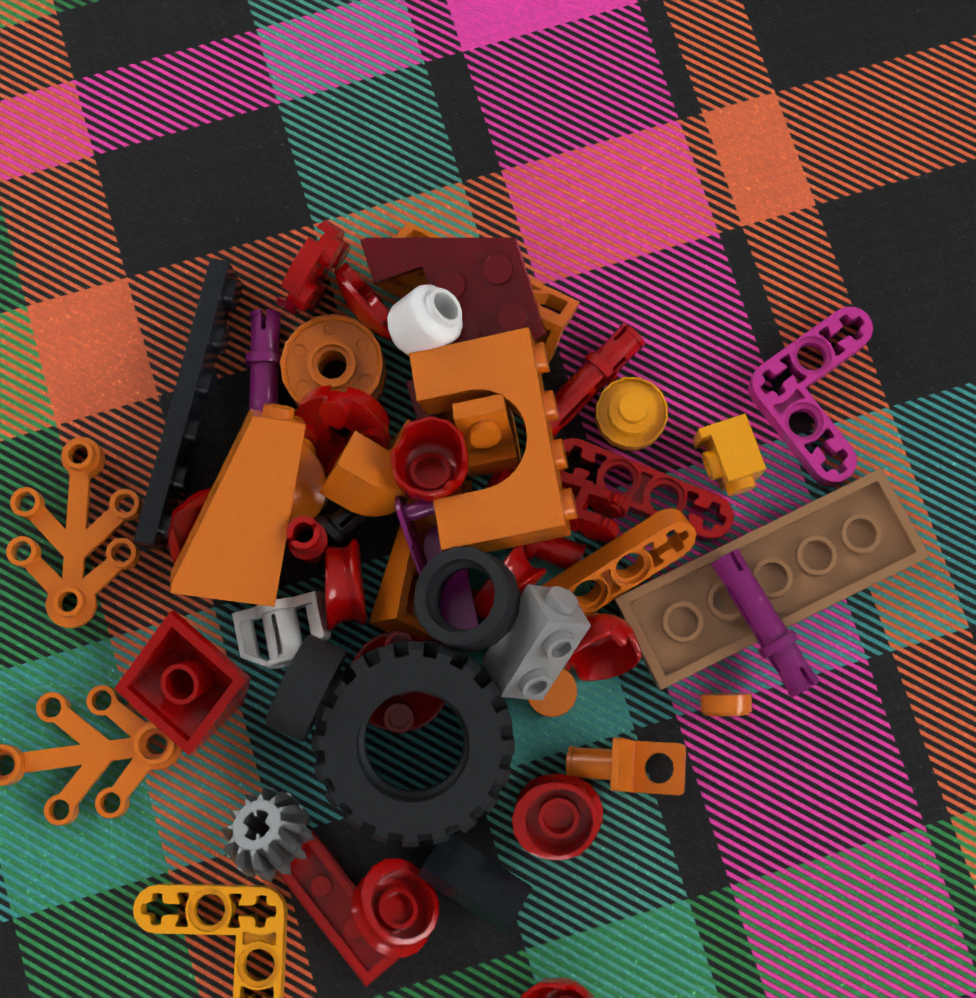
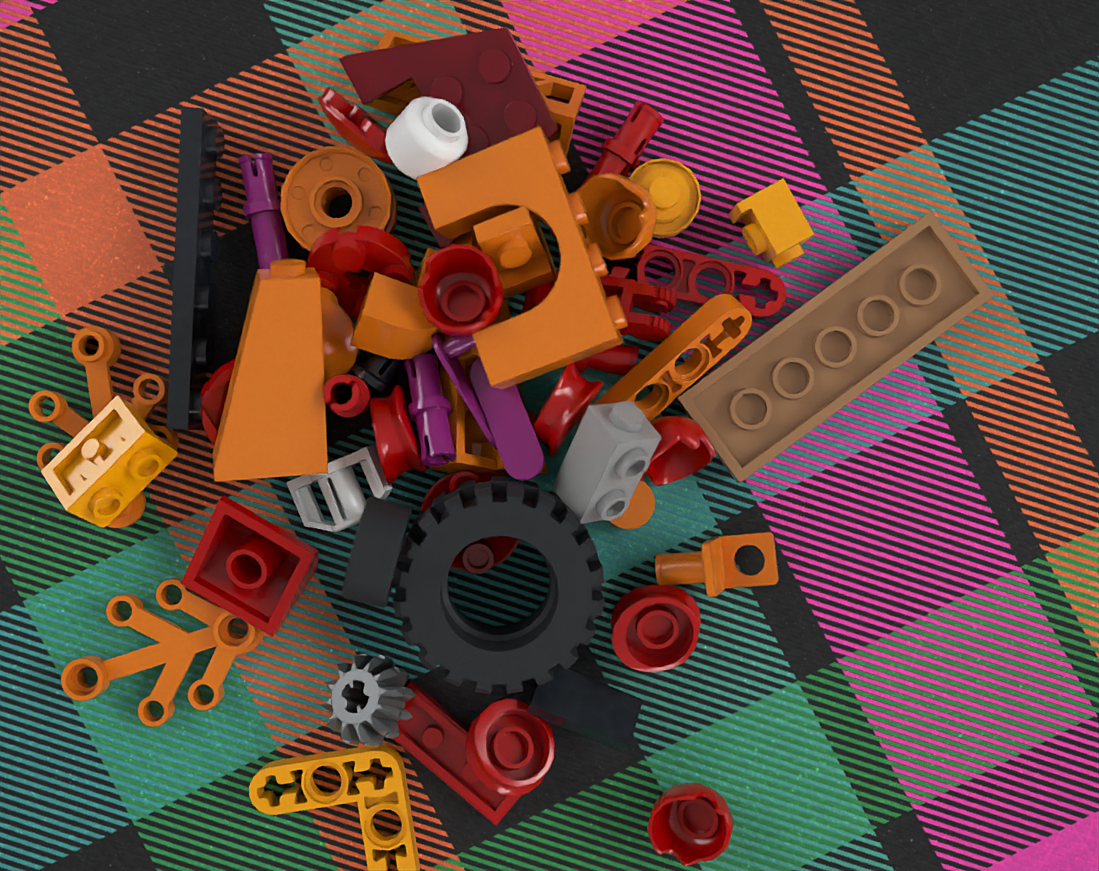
camera: 15 degrees left, 10 degrees up
(73, 563) = (108, 464): none -> light orange bracket
(311, 267) = (292, 100): red plate -> none
(380, 567) = (430, 410): none -> magenta pin
(433, 581) = (486, 434): black tyre -> none
(587, 419) = (618, 214): none -> orange hair
(726, 704) = (807, 484): orange tile -> none
(769, 630) = (831, 390): magenta pin -> none
(796, 398) = (831, 150): dark pink beam -> none

